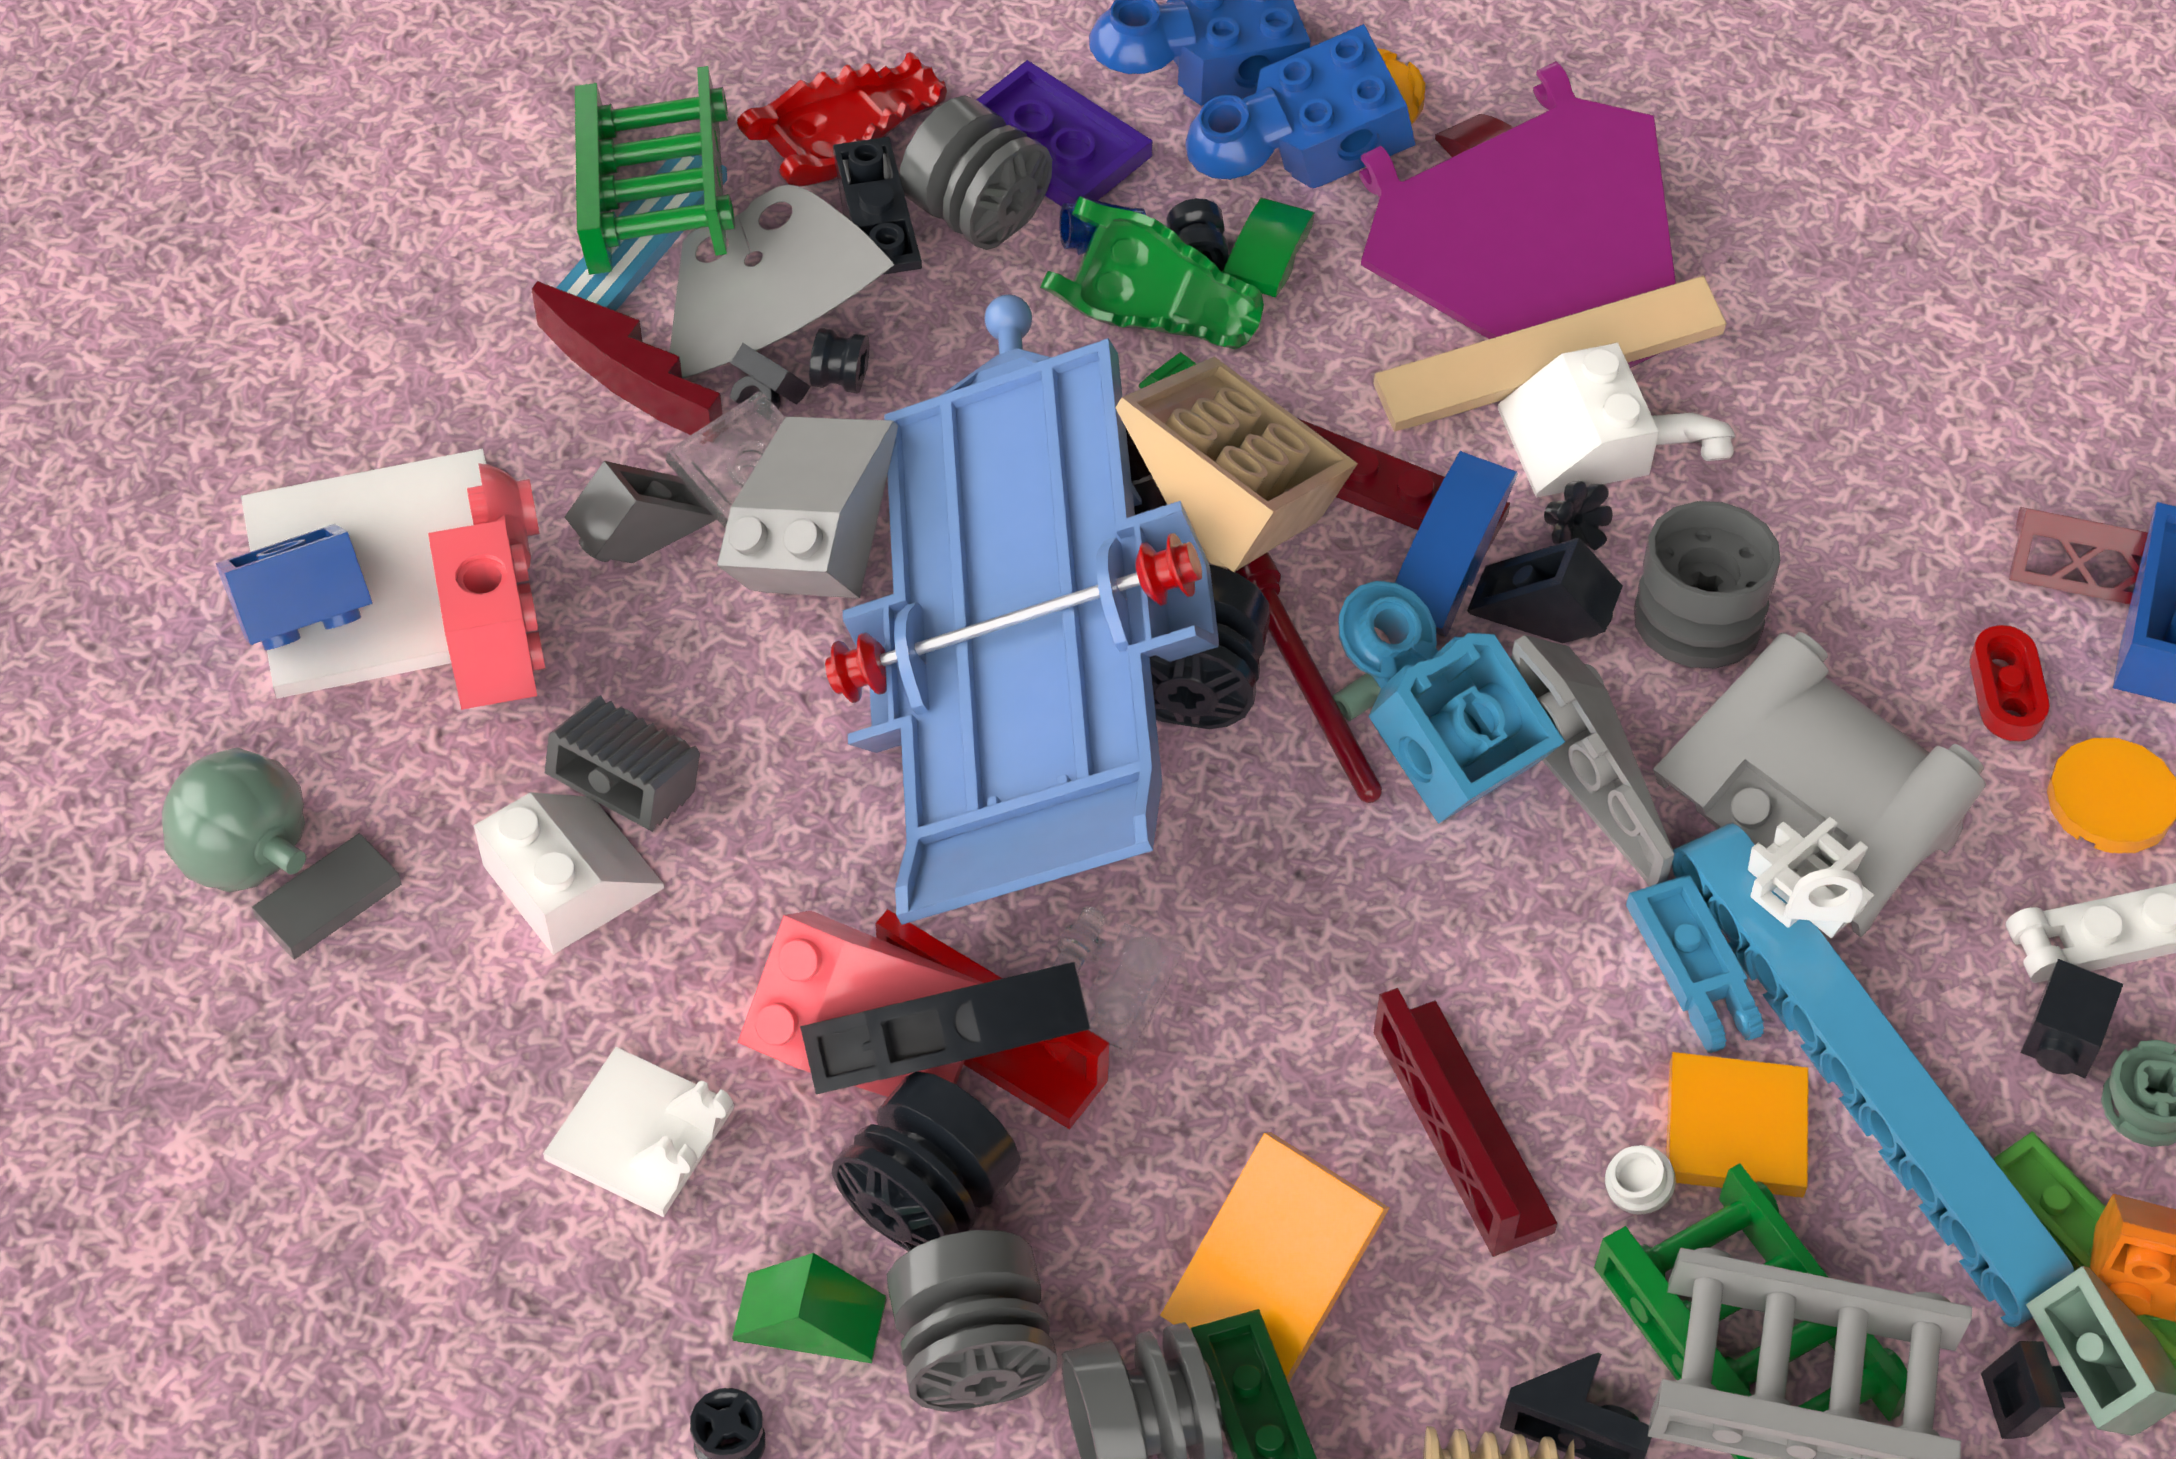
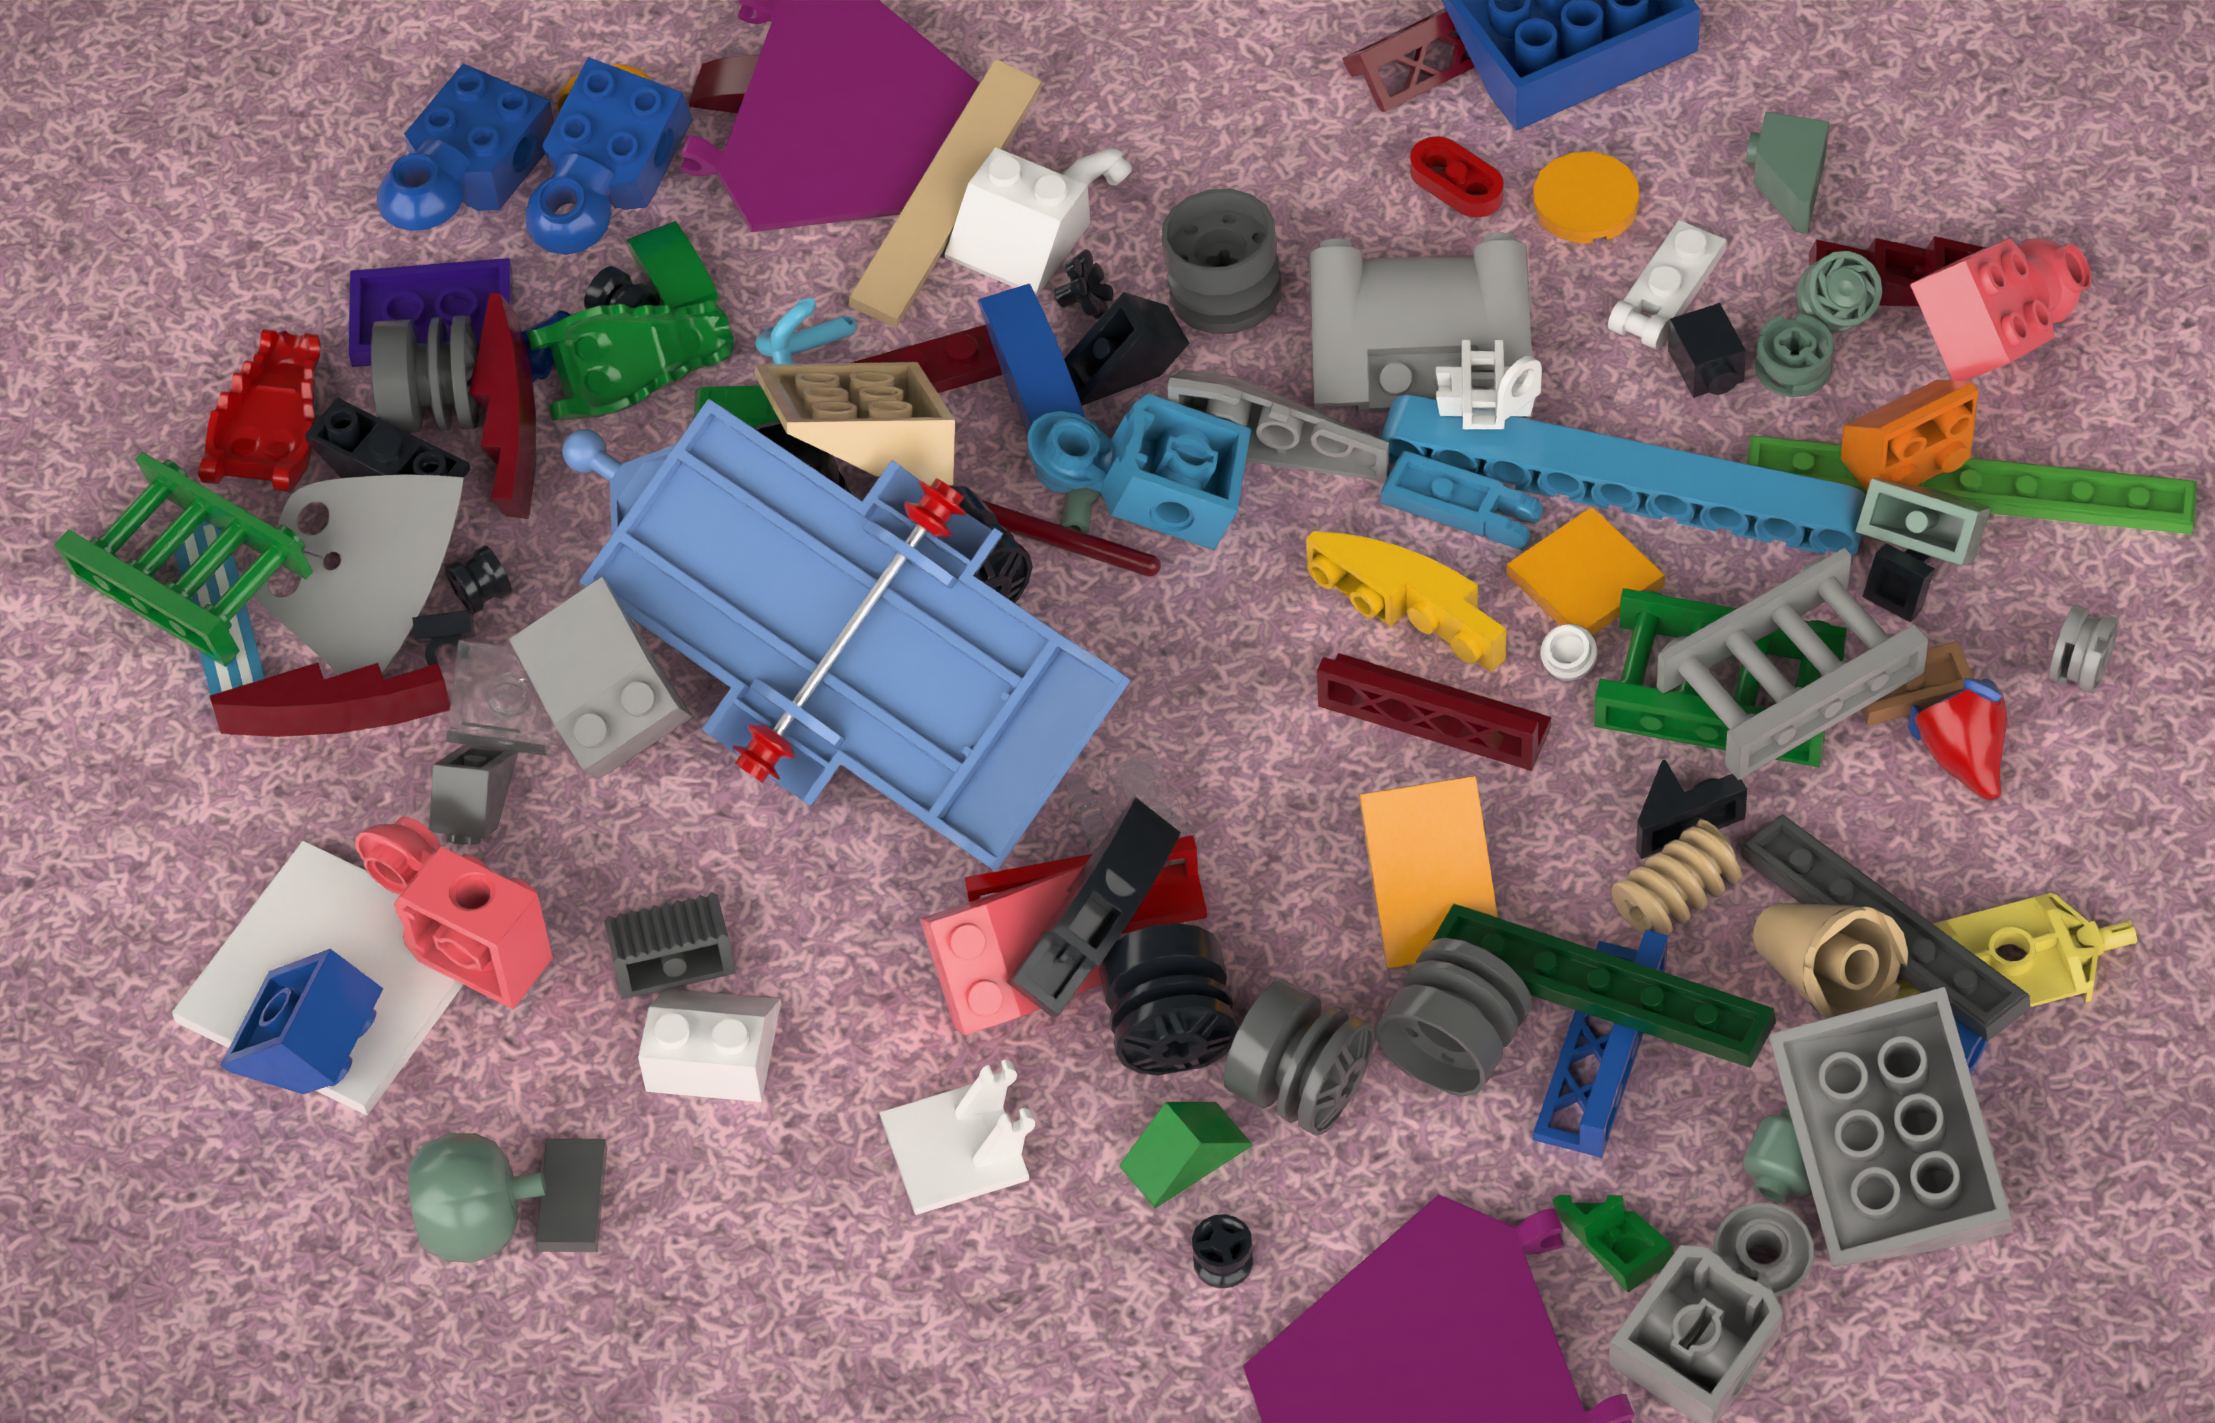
camera: 40 degrees left, 0 degrees up
(998, 255) = (506, 394): none -> dark red slope
(1276, 365) = (783, 341): none -> medium azure piece
(1559, 994) = (1396, 581): none -> yellow slope

